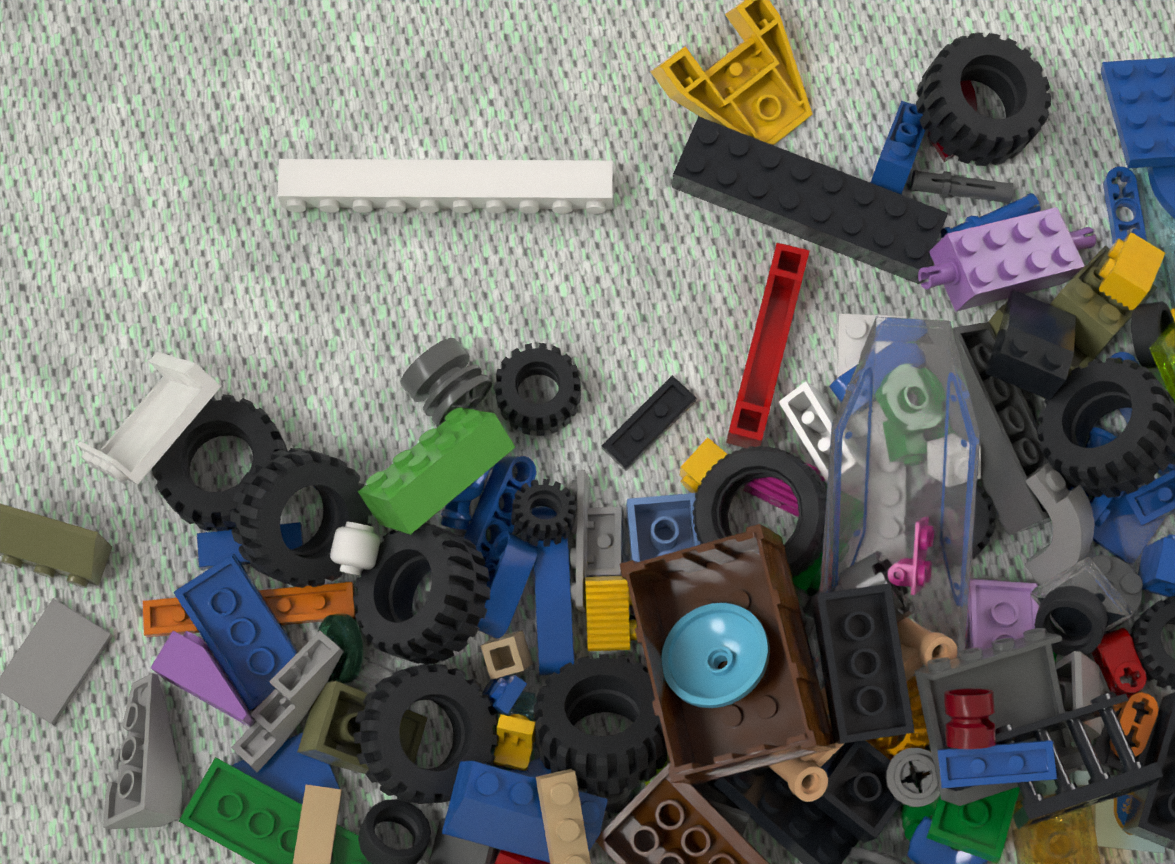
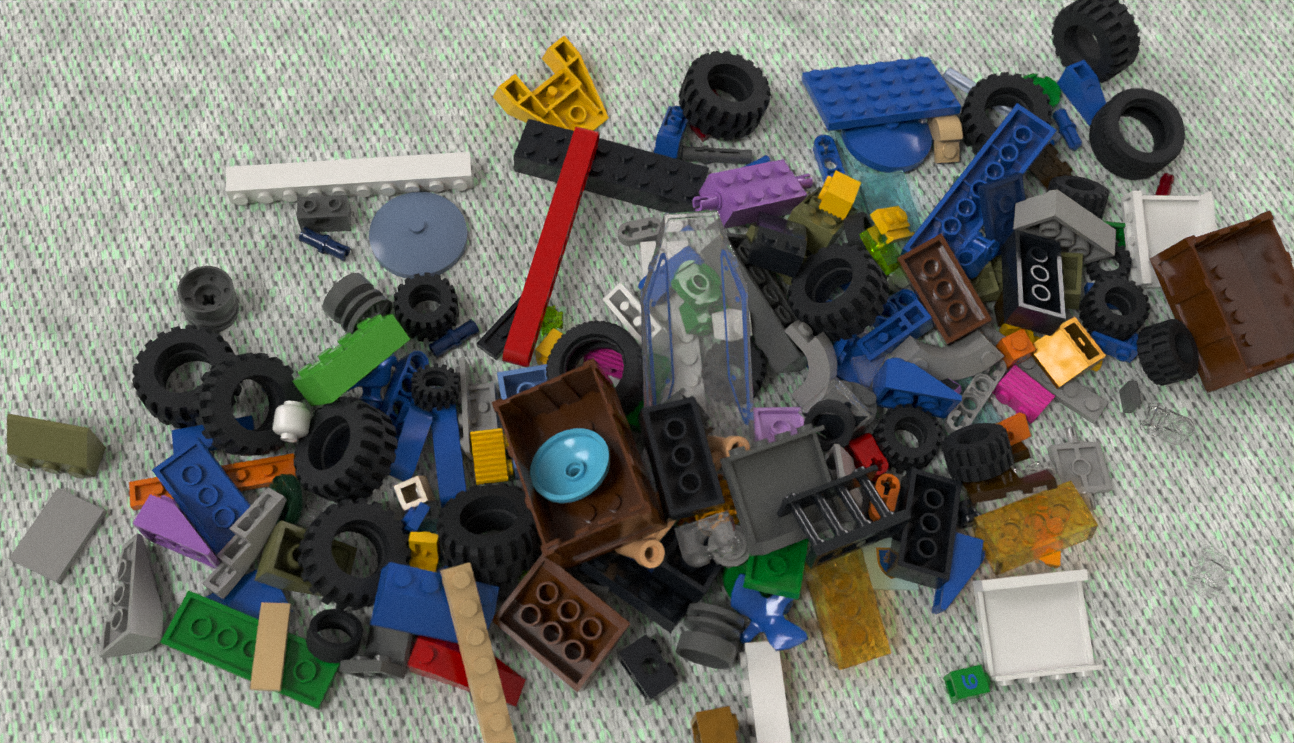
camera: 15 degrees left, 10 degrees down
(155, 420) = (156, 314): white panel -> none
(252, 337) = (208, 298): none -> dark grey wheel
(405, 281) = (324, 243): none -> dark blue pin
(407, 238) = (324, 213): none -> dark grey brick
(533, 277) = (418, 234): none -> sand blue dish
(571, 435) = (454, 338): none -> dark blue pin
(707, 414) = (555, 320): none -> clear neon green gear
(716, 318) = (551, 248): none -> red beam
(767, 346) = (592, 260): red arch -> none
(839, 289) = (639, 231): none -> light grey beam
(866, 764) = (692, 538): none -> clear brick
(915, 571) = (712, 398): dark pink hinge -> none
(970, 718) = (764, 487): dark red wheel -> none
(997, 764) = (788, 519): blue plate -> none

